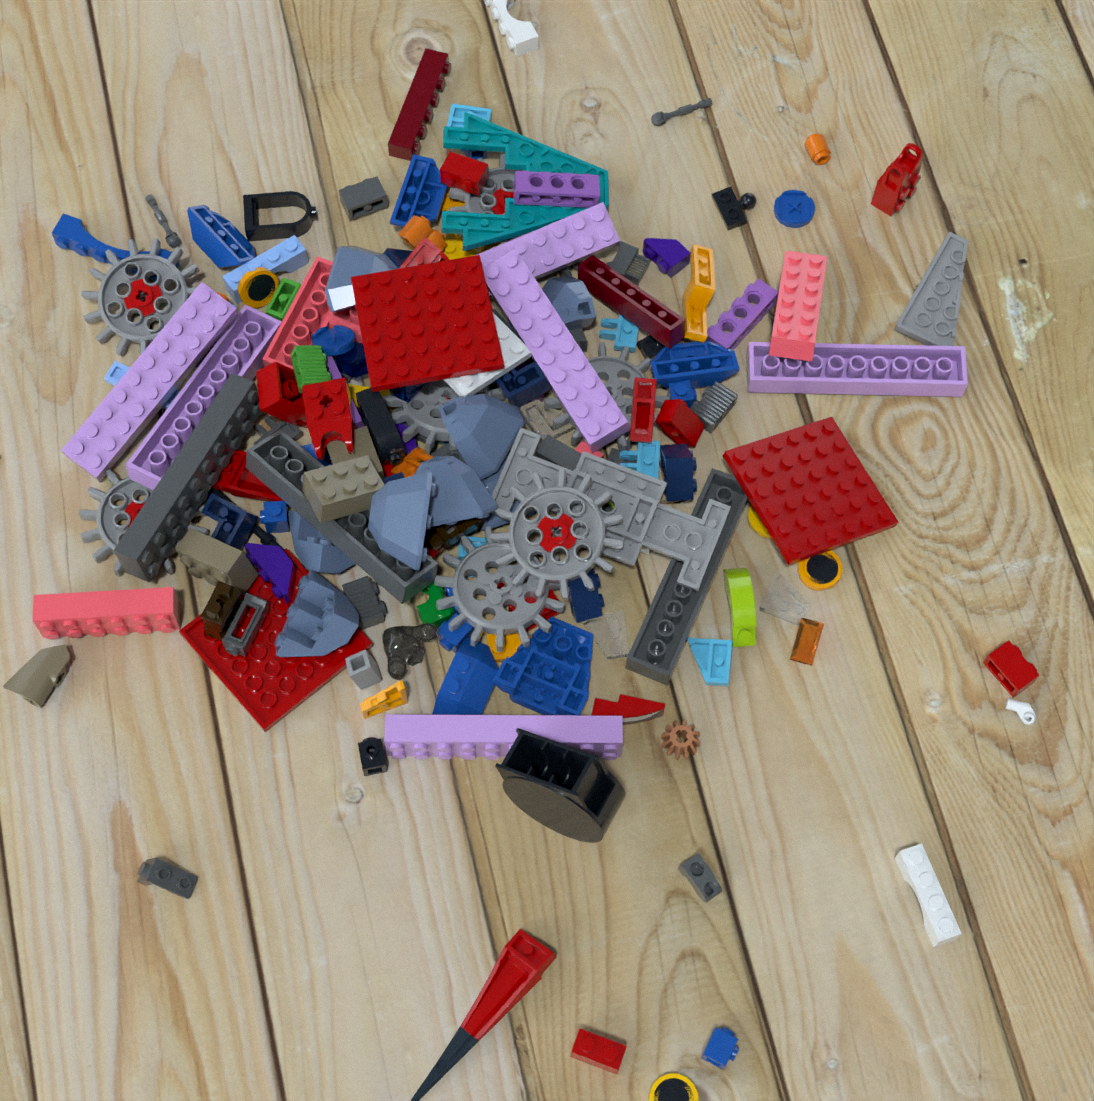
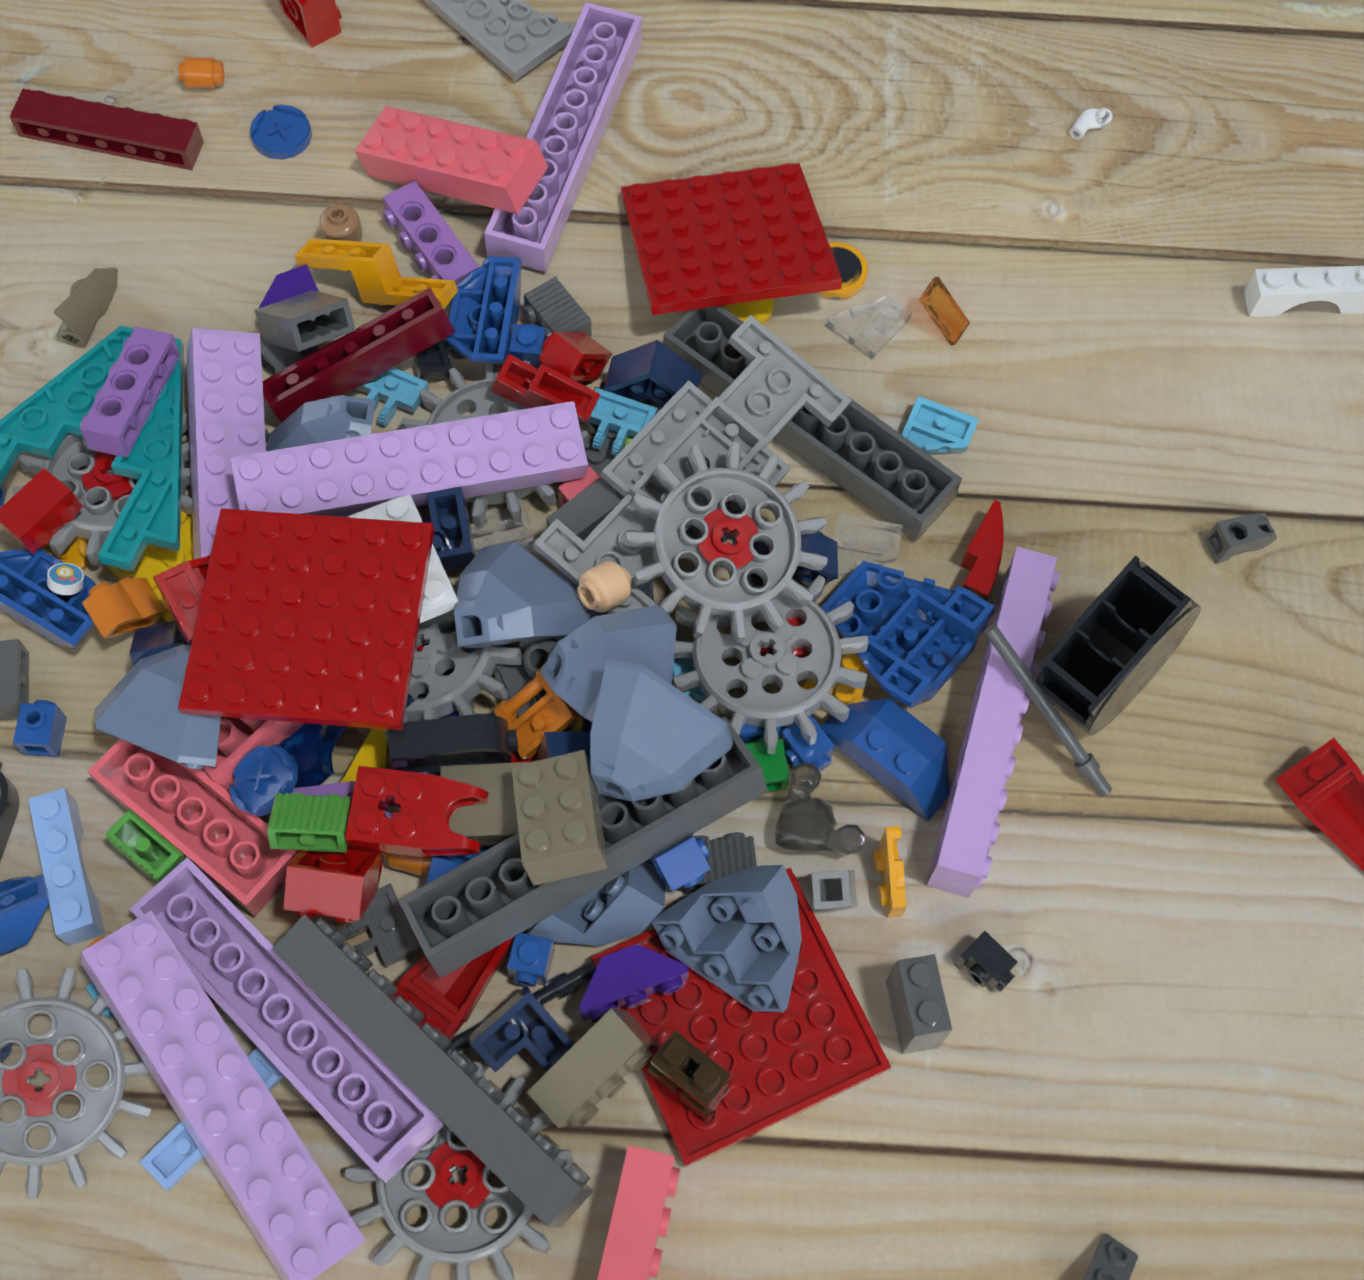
camera: 75 degrees left, 0 degrees up
(241, 646) = (748, 1074): dark grey window -> none
(257, 287) = (100, 883): tile -> none
(300, 730) = (918, 1004): none -> dark grey brick
(342, 228) = (40, 729): none -> blue brick
(344, 771) = (988, 963): none -> black brick
(348, 573) = (682, 863): none -> brick
(372, 756) = (972, 914): black brick -> none
(429, 203) = (65, 578): none -> tile
(492, 803) = (1085, 763): none -> dark grey bar
(502, 474) = (604, 586): none -> light nougat head
(623, 149) = (87, 303): none -> dark tan panel
(639, 262) = (305, 320): none -> dark grey brick
(660, 117) = (54, 240): dark grey piece -> none
(688, 733) = (1043, 501): nougat gear -> none
(729, 264) = (340, 223): none -> medium nougat head
(731, 208) = (246, 203): black plate -> none
(742, 606) = (870, 362): lime arch -> none
(752, 115) = (107, 129): none -> dark red brick
(1011, 668) = (1036, 111): red brick -> none

